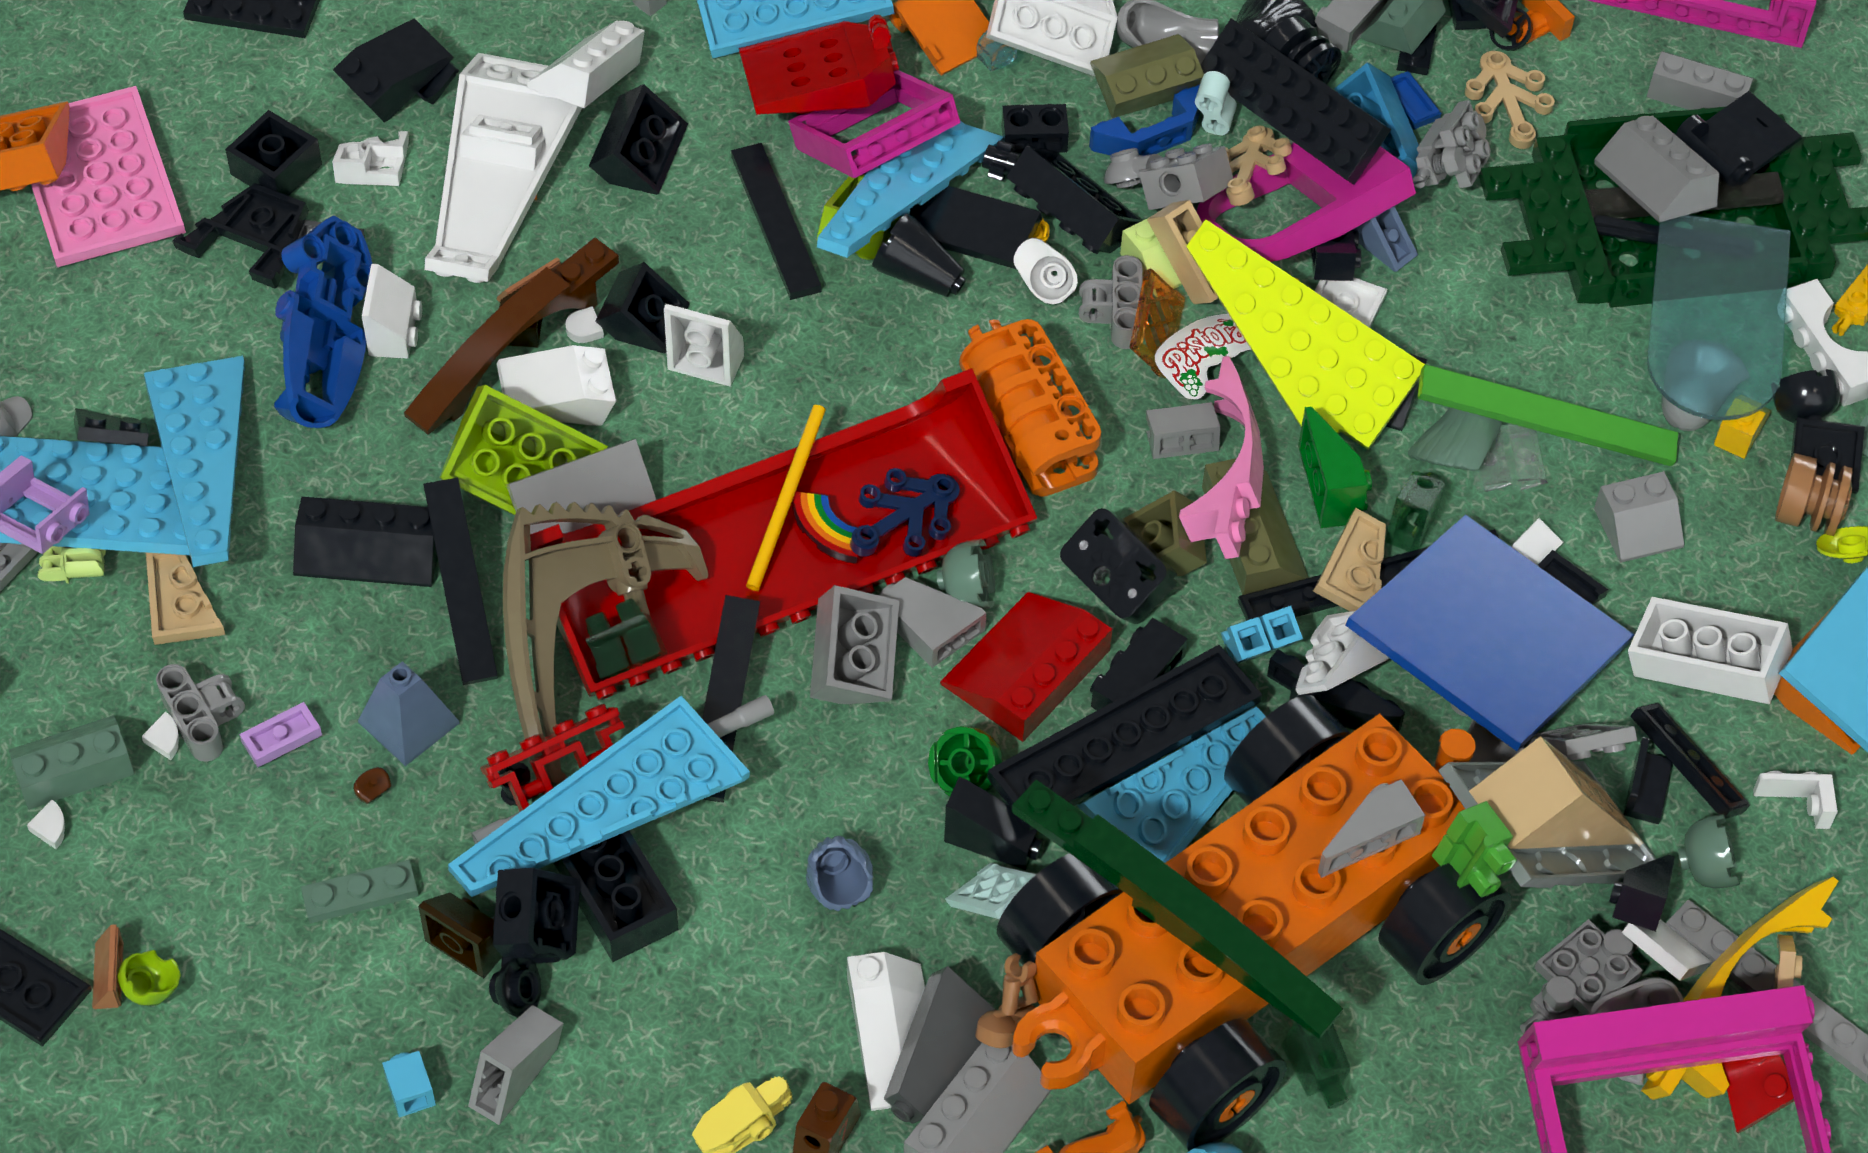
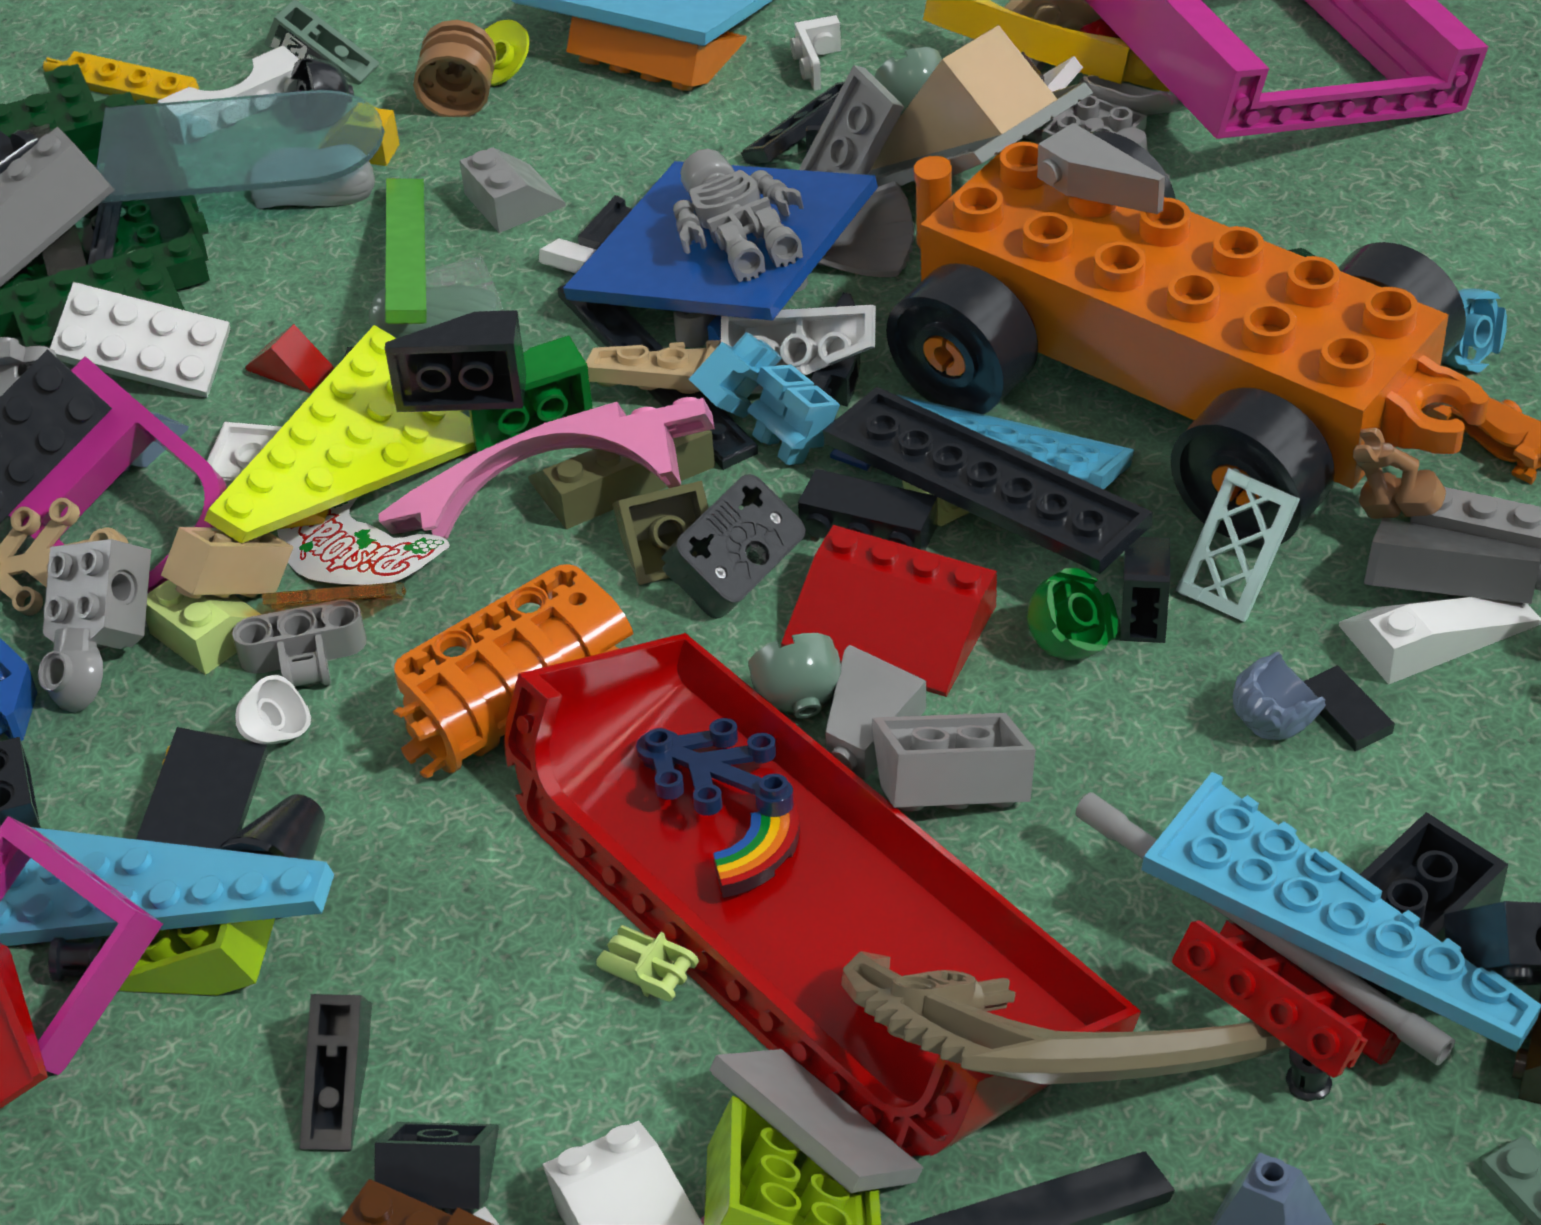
camera: 100 degrees left, 10 degrees down
(625, 644) = (1048, 986): clear green hips -> none
(702, 345) = (500, 1043): white slope -> none
(730, 665) = (1044, 871): black tile -> none
(738, 271) = (334, 1070): none -> black slope
(752, 442) = (647, 961): none -> yellowish green arm
(776, 221) = (202, 1061): black tile -> none
(785, 498) = (736, 887): yellow piece -> none
(829, 933) = (1350, 709): none -> black tile
(999, 159) = (70, 808): black gear -> none
(1071, 198) = (131, 722): black slope -> none
(1179, 907) = (1263, 297): dark green slope -> none
(1183, 430) = (493, 546): light grey hinge -> none
(1302, 592) = (732, 373): none -> medium azure hips
(1317, 398) = (460, 365): none -> black slope
(1337, 258) = (165, 479): black brick -> none
(1420, 495) = (561, 316): clear green torso -> none
(1447, 339) = (292, 361): none -> red slope
(1475, 847) = (1065, 103): bright green hips -> none
(1481, 235) = (140, 339): none -> white plate
(1513, 635) = (732, 208): none -> light grey piece
(1710, 650) = (683, 95): white brick -> none
(1830, 443) = (385, 81): black tile -> none

